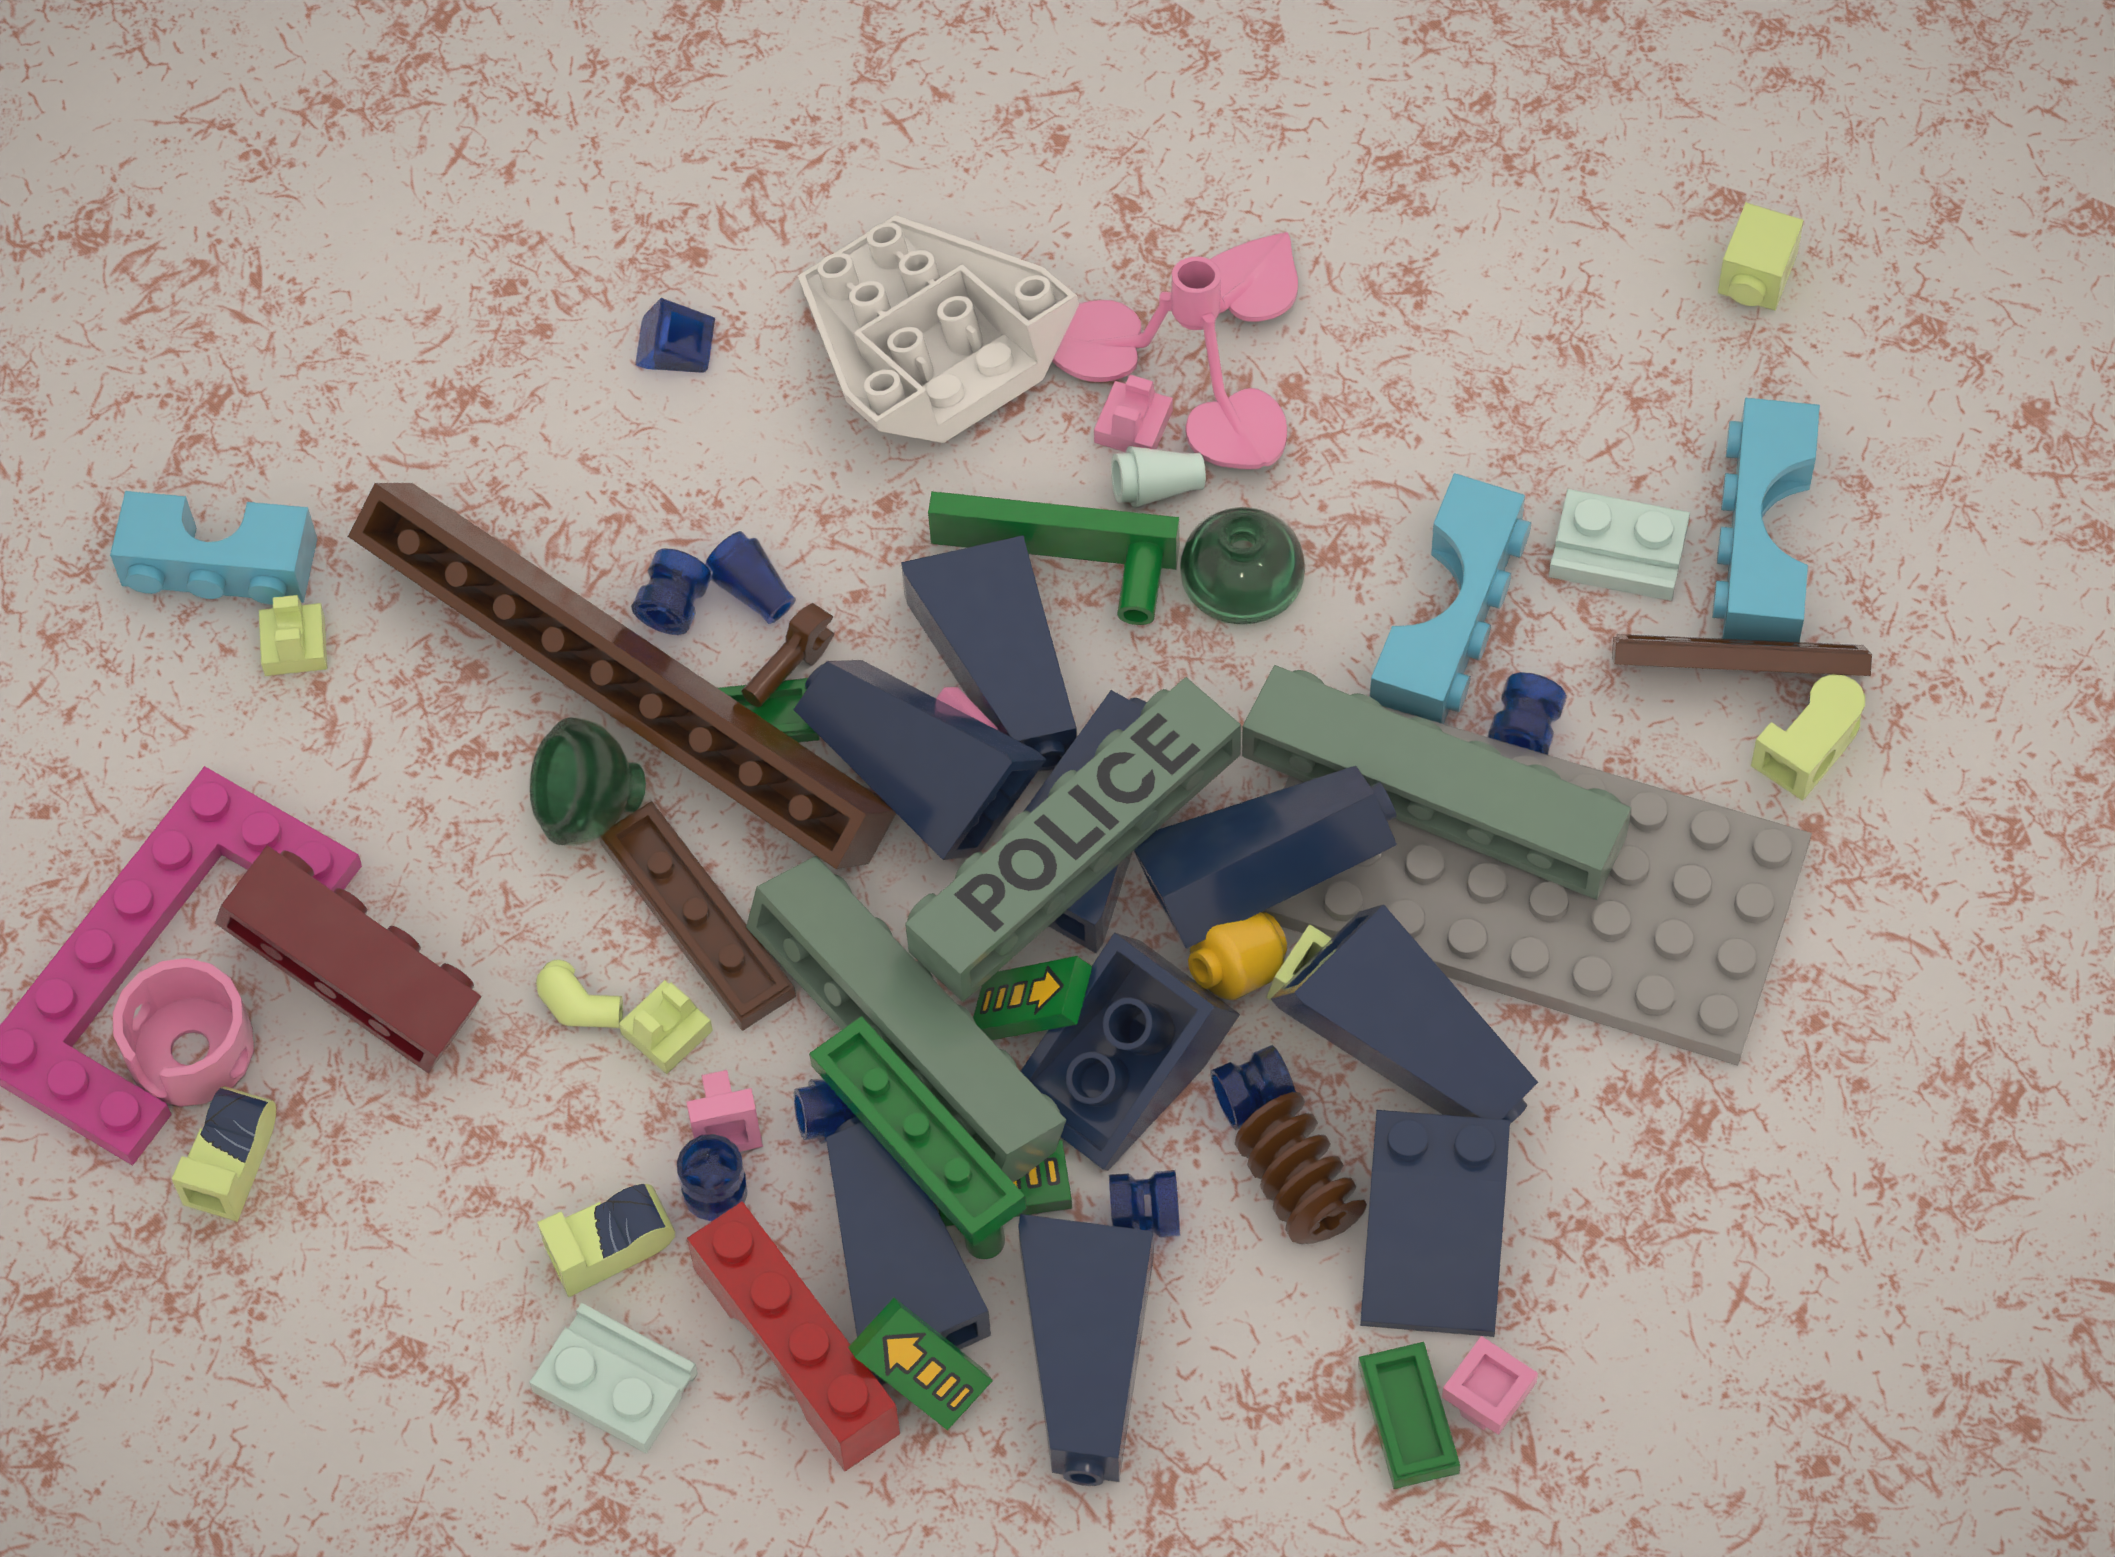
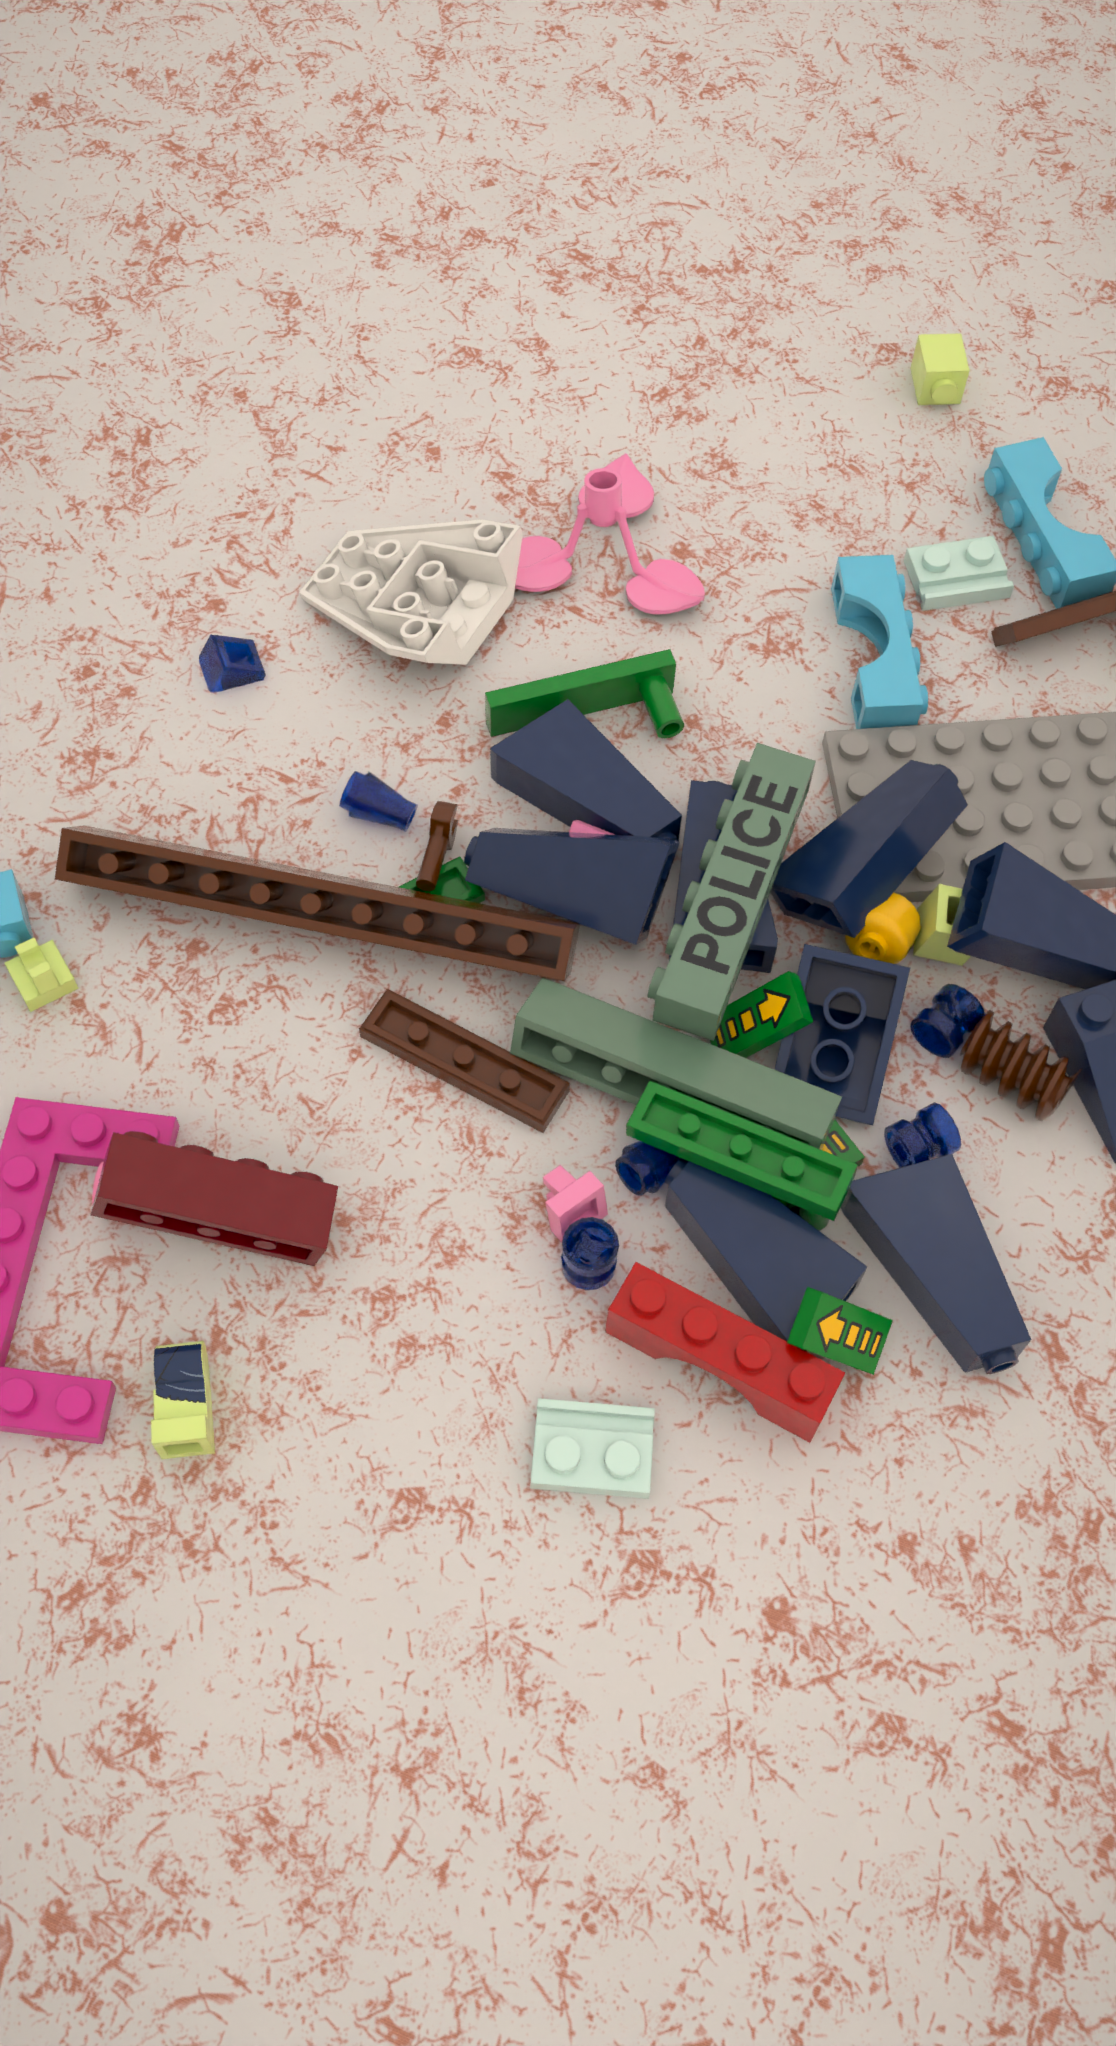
camera: 30 degrees left, 0 degrees up
(175, 1001) = (83, 1290): bright pink piece -> none
(571, 1002) = (403, 1163): yellowish green arm -> none
(582, 782) = (330, 993): clear green piece -> none
(606, 1237) = (529, 1337): yellowish green leg -> none
(666, 1026) = (486, 1152): yellowish green tile -> none
(671, 591) = (324, 834): clear blue wheel -> none
(1133, 416) = (589, 603): bright pink tile -> none
(1155, 474) = (626, 633): light aqua cone -> none
(1242, 582) = (722, 670): clear green piece -> none
(1440, 780) = (986, 755): sand green brick -> none
(1528, 711) = (973, 694): clear blue wheel -> none

